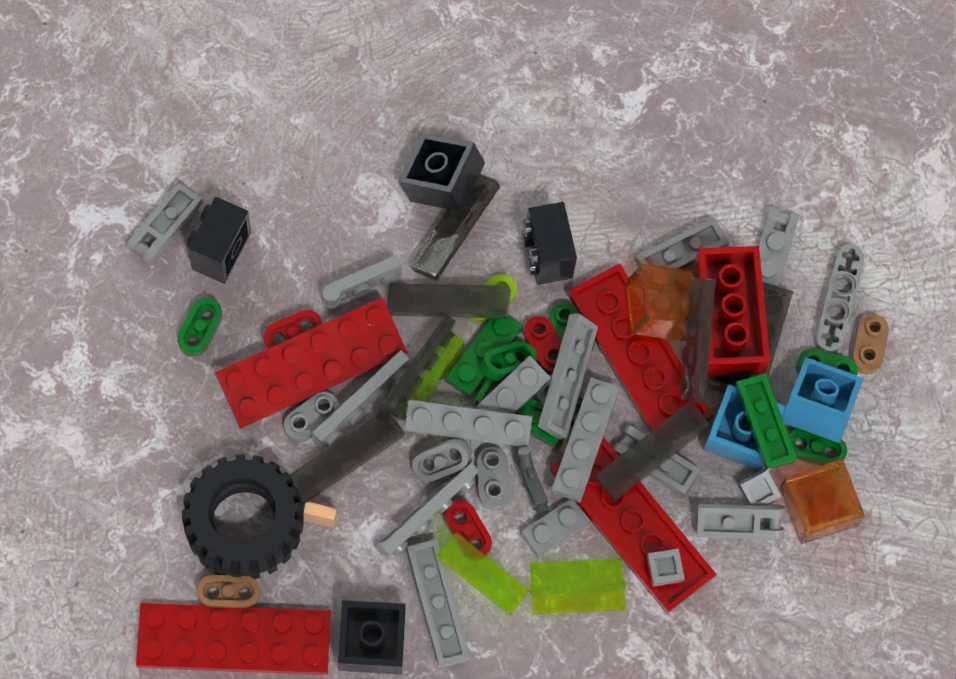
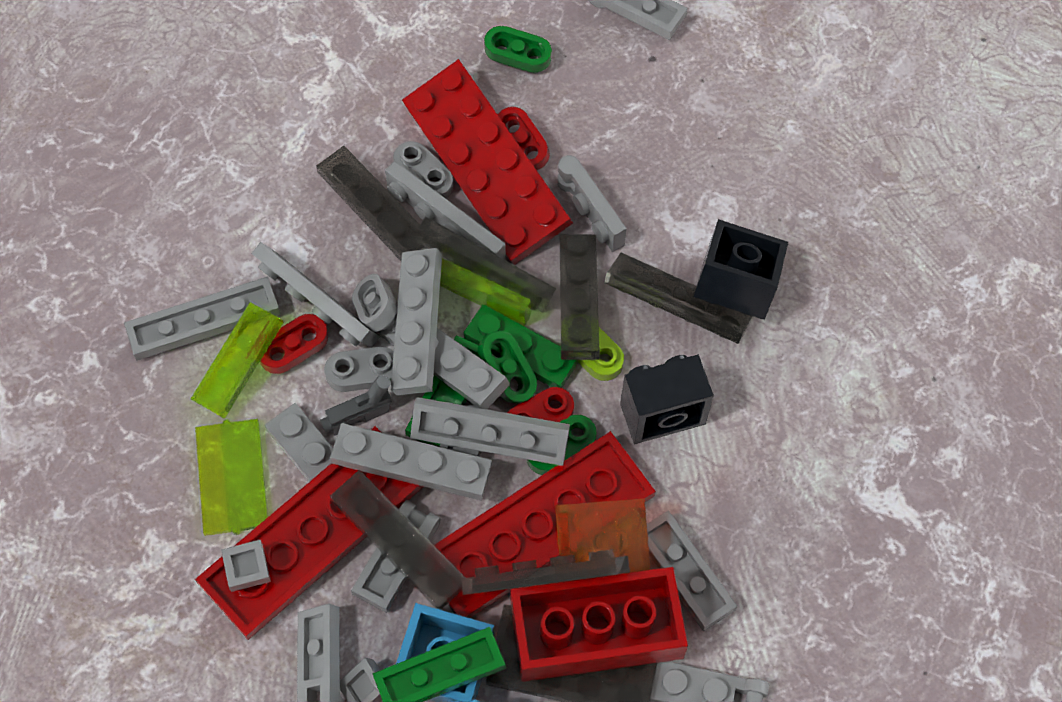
camera: 90 degrees right, 5 degrees down
(219, 239) = (617, 47): black brick -> none
(228, 591) = (210, 109): medium nougat plate -> none
(233, 639) = (159, 123): red plate -> none
(234, 478) = (284, 66): black tyre -> none
(320, 514) = (303, 185): light nougat tile -> none
(371, 637) = (154, 246): black brick -> none

